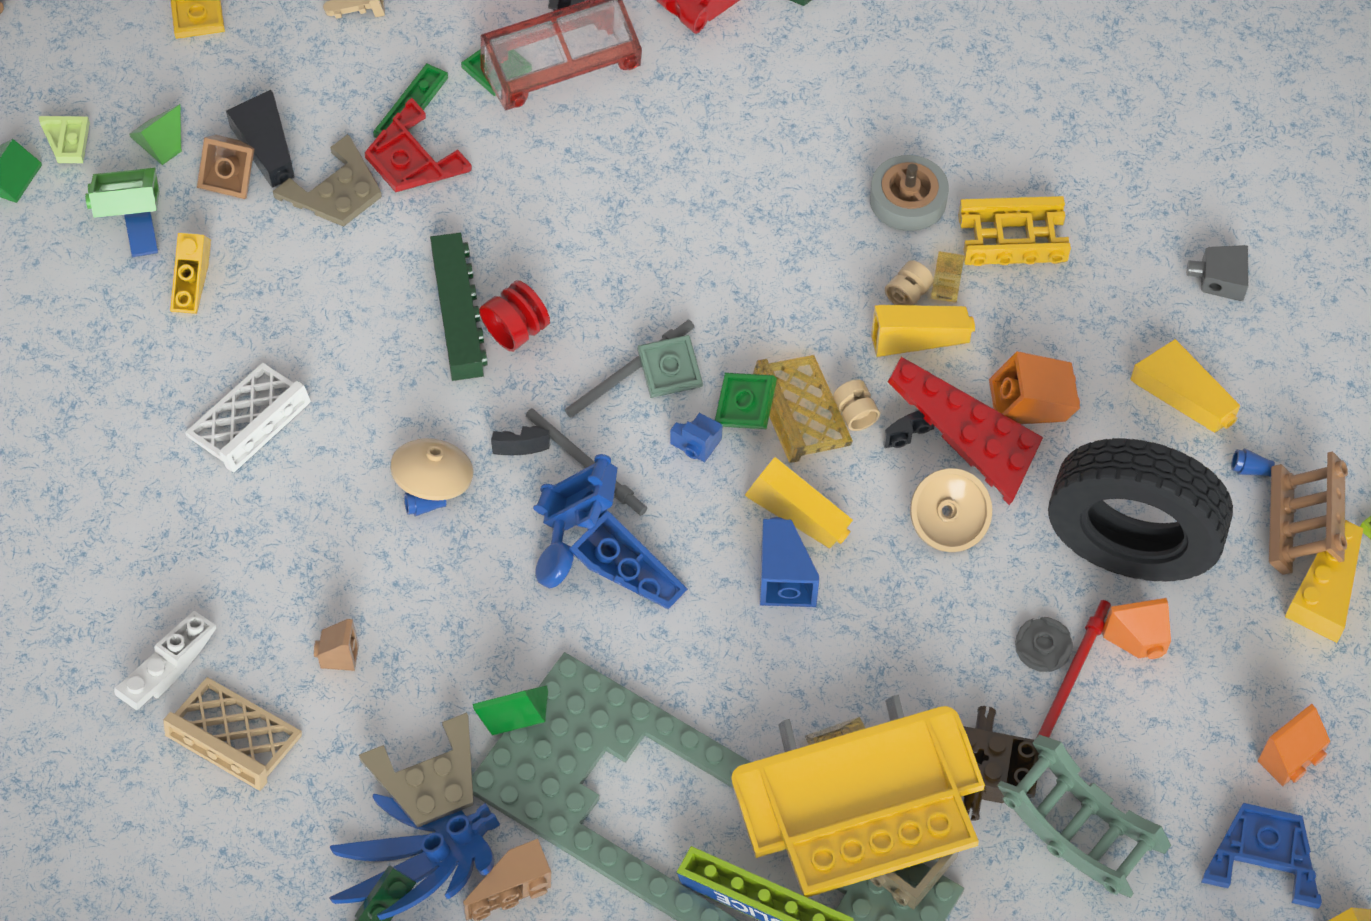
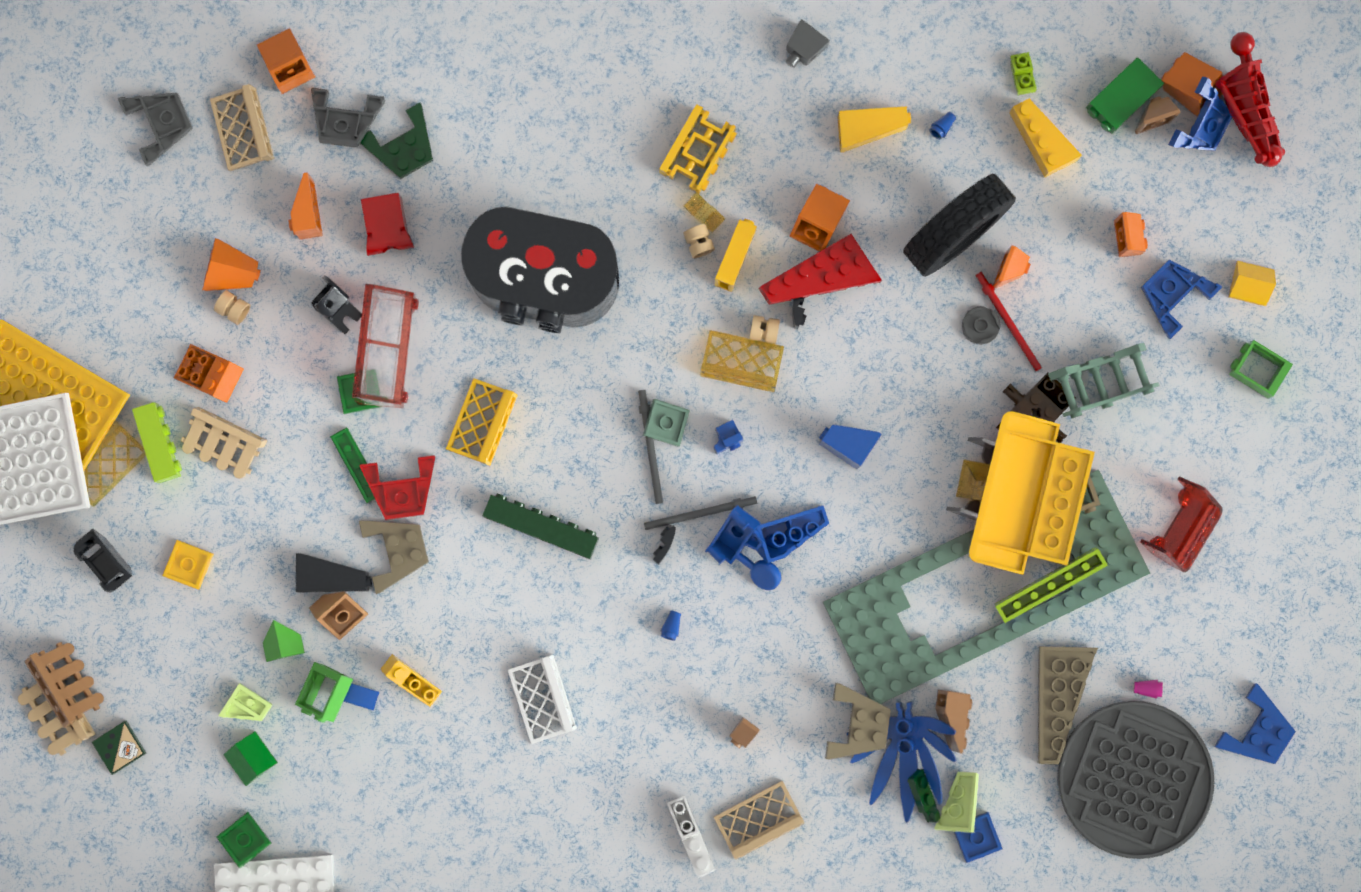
camera: 60 degrees left, 25 degrees up
(431, 469) = (657, 620): tan dish -> none
(513, 710) = (846, 652): green slope -> none
(514, 315) = (576, 497): red wheel -> none
(545, 203) = (497, 425): none -> yellow fence
(745, 400) = (722, 394): green tile -> none
(754, 136) = (540, 268): none -> black brick
(794, 499) = (811, 407): yellow slope -> none
(909, 192) = (631, 195): wheel -> none
(968, 506) = (879, 322): tan dish -> none
(1284, 506) = (997, 139): medium nougat fence -> none

